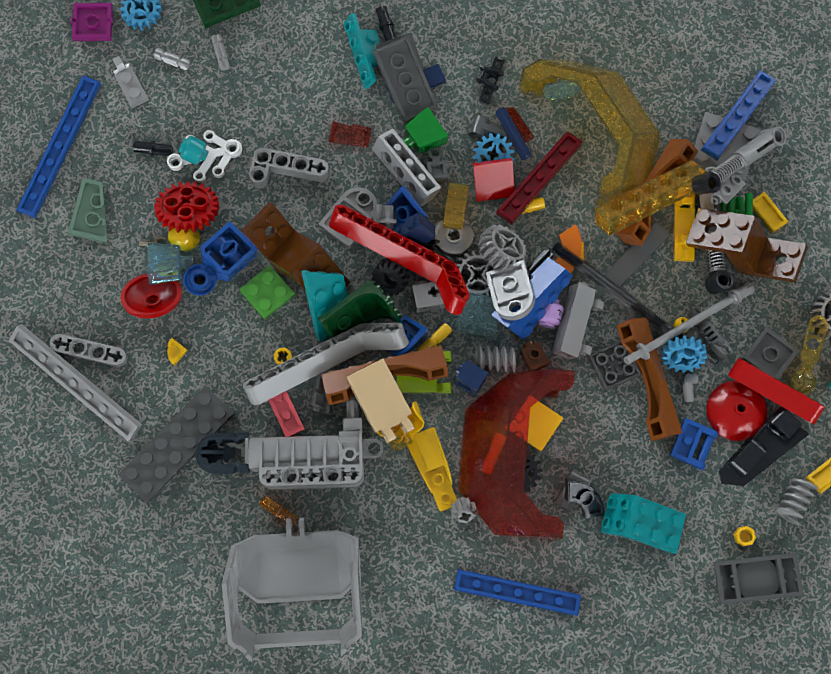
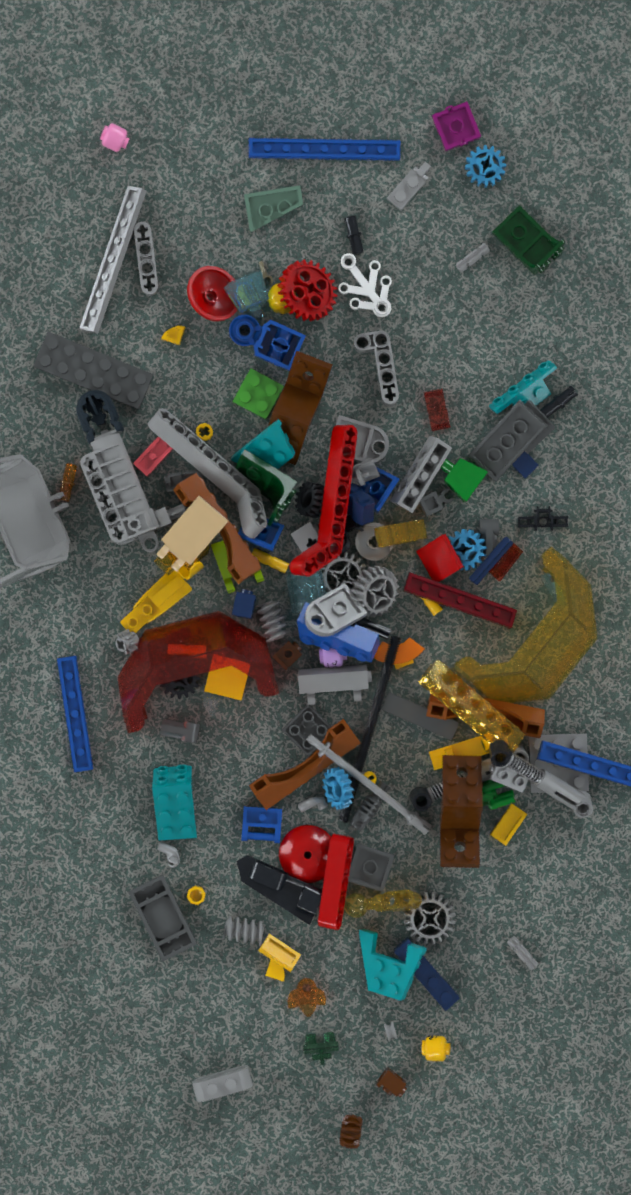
camera: 75 degrees right, 10 degrees up
(171, 59) = (448, 215): light grey axle -> none
(193, 150) = (363, 273): teal head -> none
(585, 496) = (177, 742): black tile -> none
(694, 545) = (171, 852): none -> light grey arm

